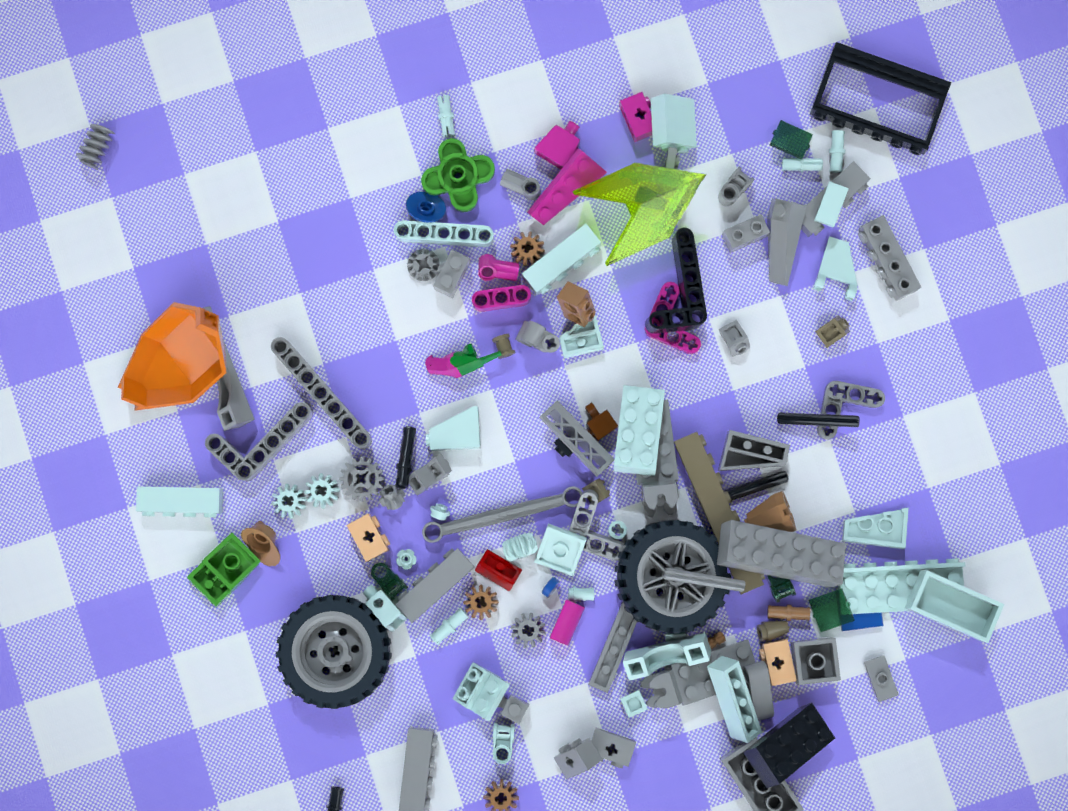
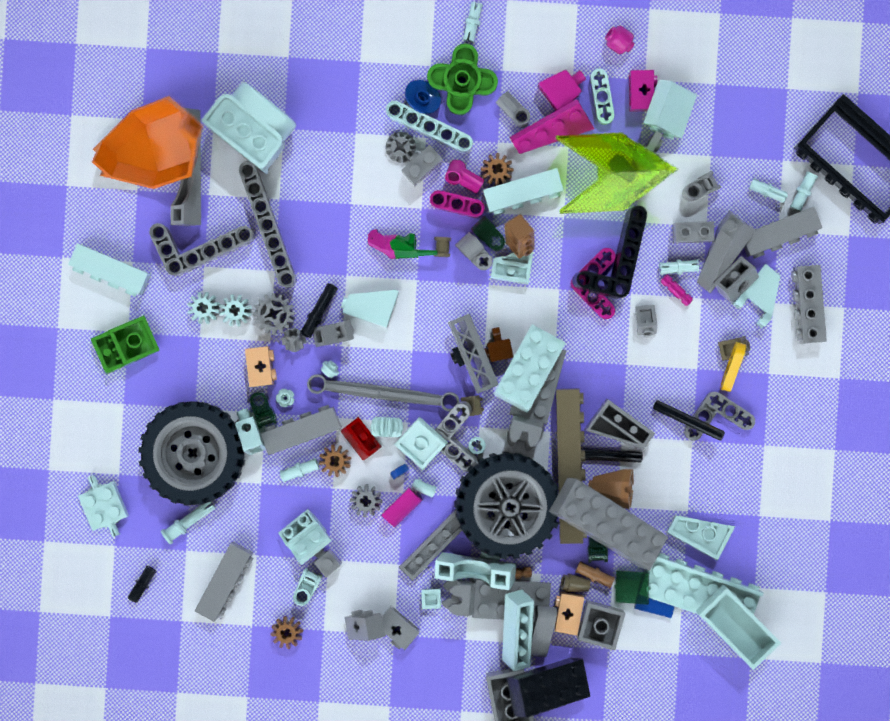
camera: 15 degrees right, 5 degrees up
(261, 542) = (166, 335): medium nougat piece -> none
(264, 742) = (103, 505): none -> light aqua plate
(266, 300) = (250, 125): none -> light aqua brick
(351, 731) = (181, 526): none -> light aqua pin
(542, 313) = (487, 231): none -> clear green piece
(596, 76) = (619, 39): none -> dark pink head
(604, 153) = (594, 83): none -> light aqua beam
(704, 579) = (532, 519): light grey axle -> none
(745, 273) = (679, 267): none -> light aqua pin
(752, 296) = (676, 290): none -> dark pink axle
(791, 139) = (767, 165): clear green piece -> none
(807, 262) = (736, 279): none -> light grey brick
(831, 204) = (778, 237): light aqua tile -> none
(840, 348) = (733, 366): none -> yellow beam
(881, 678) = (650, 661): light grey plate -> none

